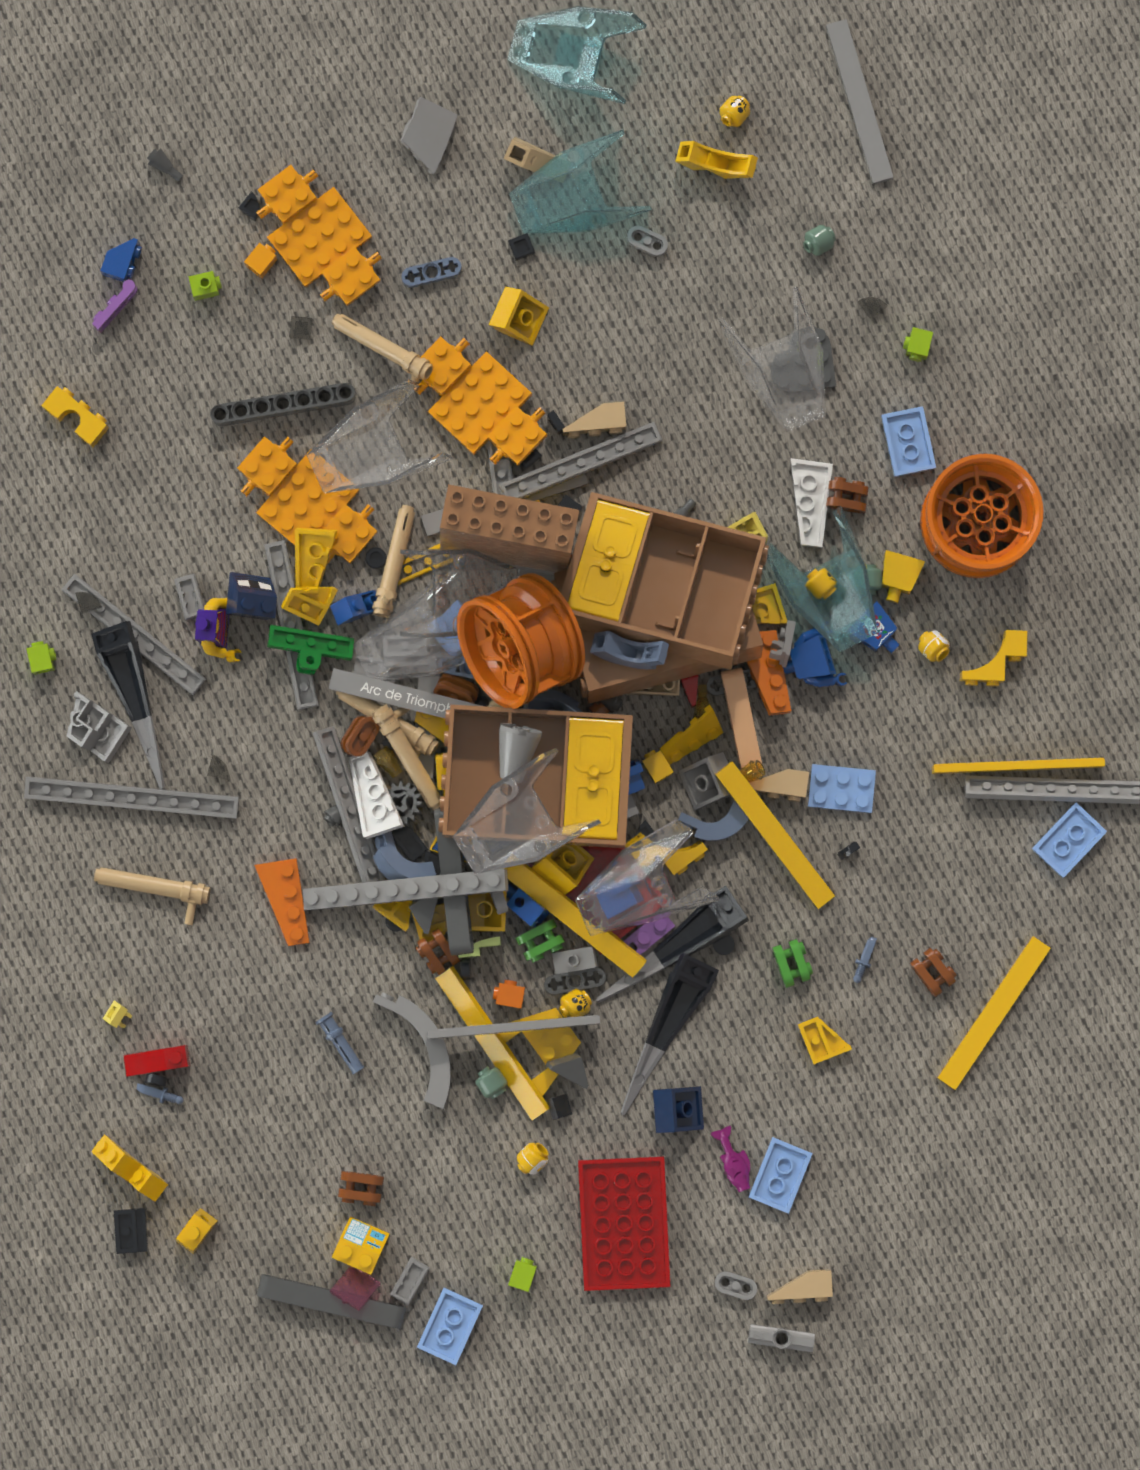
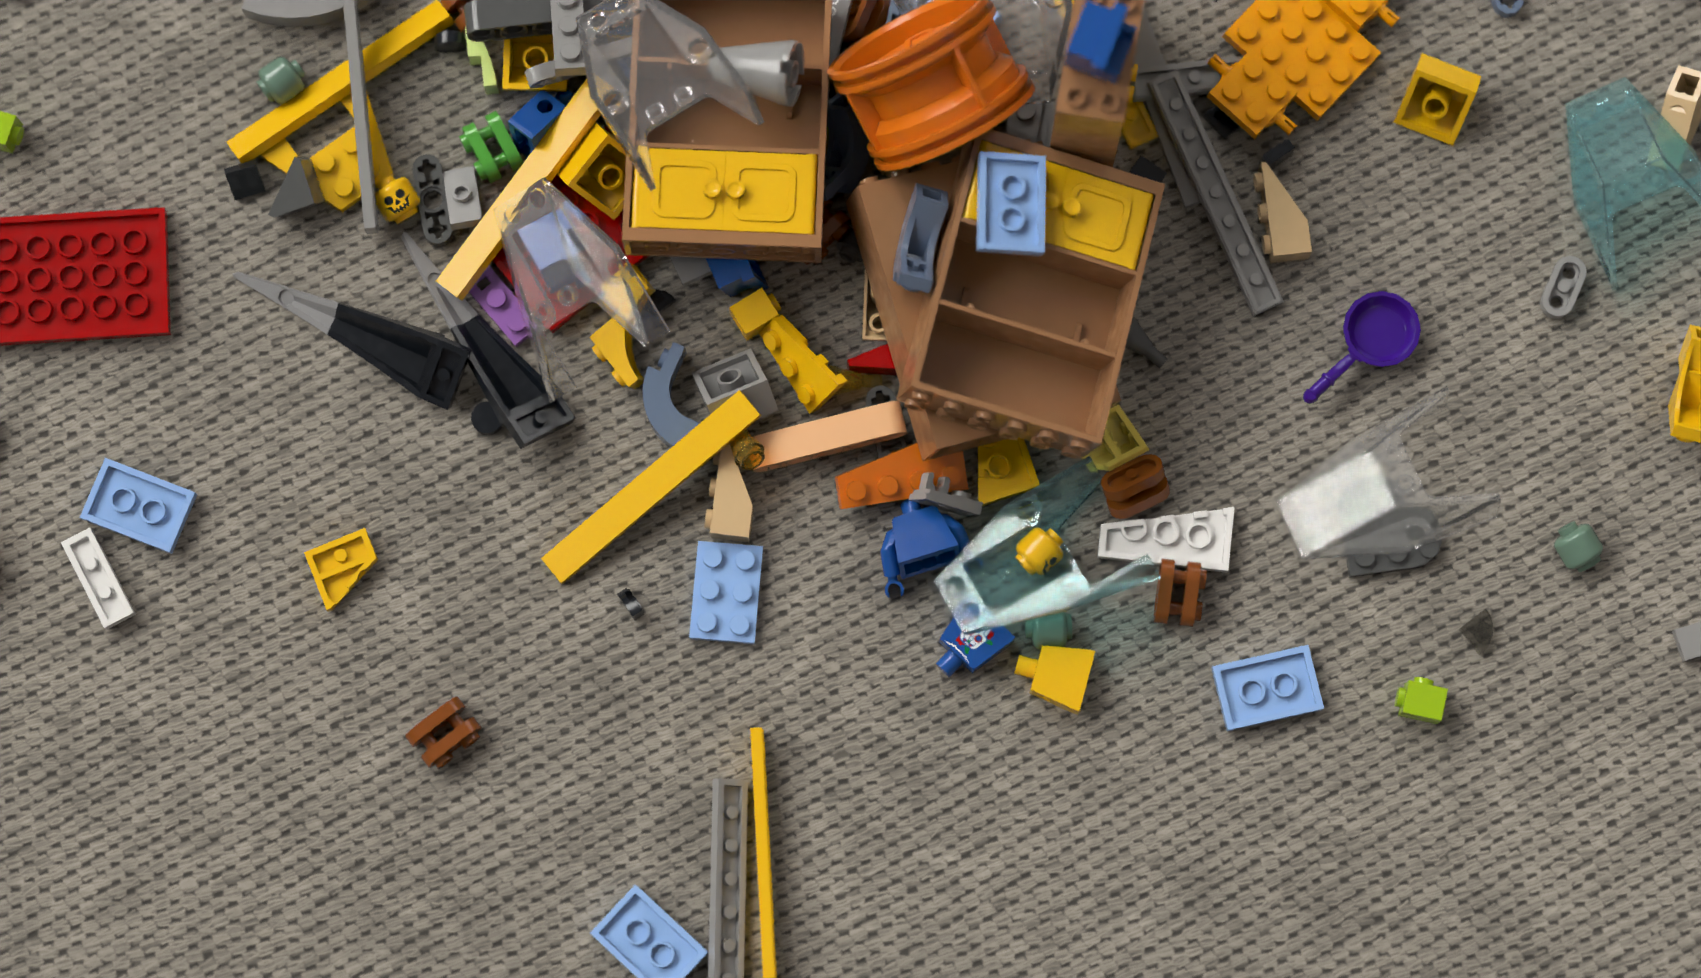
camera: 90 degrees right, 5 degrees down
(509, 994) = (411, 104): orange brick -> none
(521, 246) = (1544, 103): black tile -> none
(532, 522) = (1101, 41): none -> blue plate
(532, 1158) = (168, 141): yellow head -> none
(611, 589) = (1011, 203): none -> light blue plate
(677, 360) = (1378, 331): none -> dark purple piece
(678, 1109) = (238, 353): dark blue slope -> none
(735, 1164) = (155, 439): magenta animal -> none
(777, 521) = (1135, 486): none -> dark orange brick
(803, 969) = (448, 535): bright green brick -> none
(828, 1201) = (98, 578): none -> white plate
(863, 962) = (463, 629): sand blue piece -> none
(934, 646) = (948, 729): yellow head -> none
(993, 1013) = (382, 828): yellow tile -> none
(1012, 647) = (949, 852): yellow arch -> none
(1017, 489) = (1174, 729): orange wheel -> none

